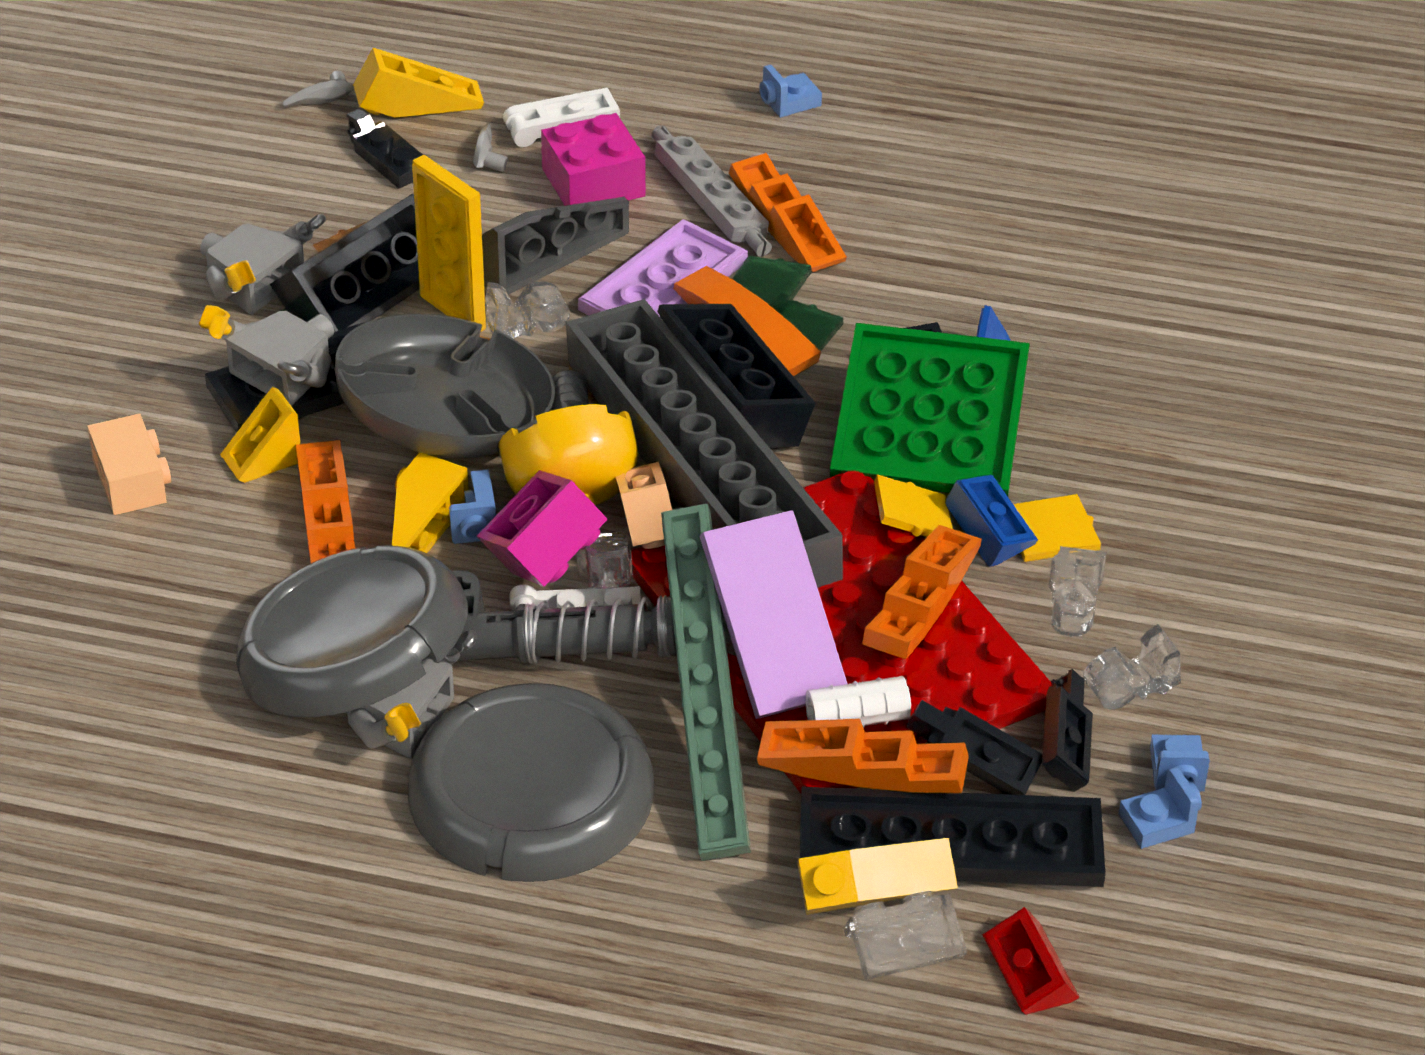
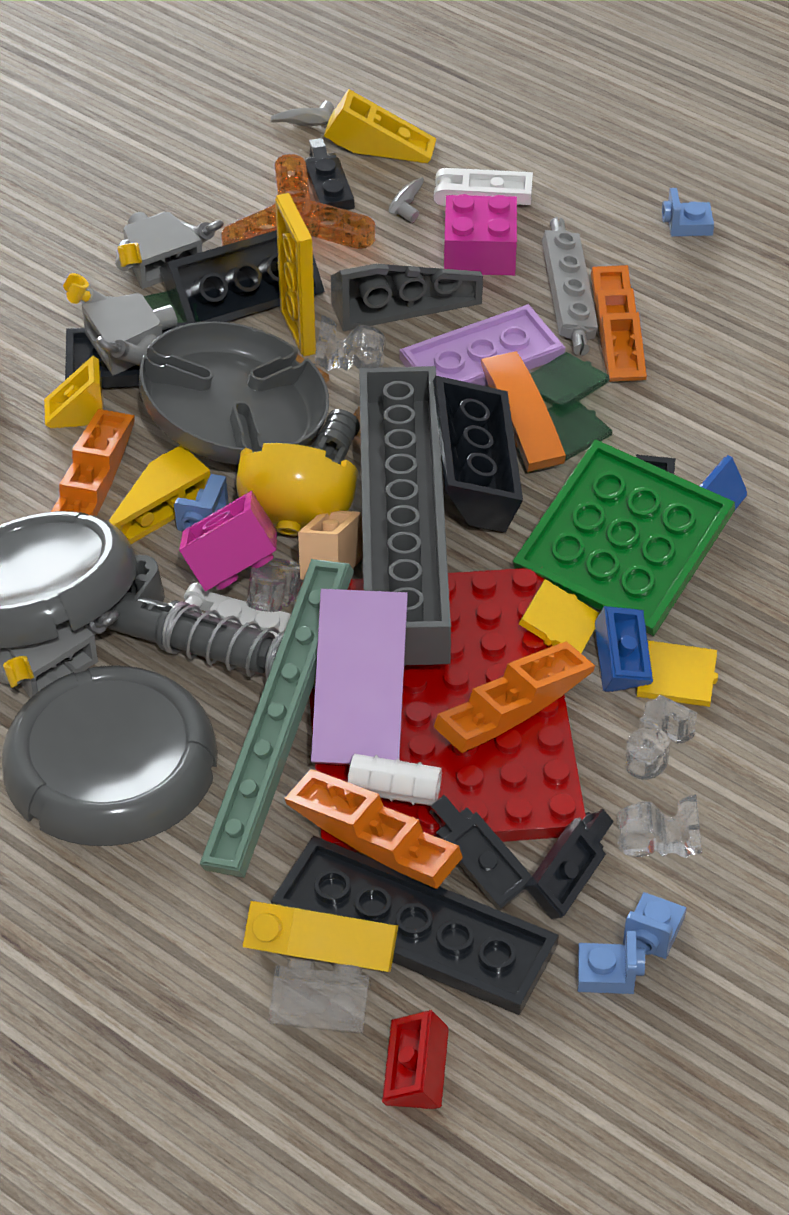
camera: 25 degrees right, 5 degrees up
(366, 192) = (350, 227): none -> clear orange piece

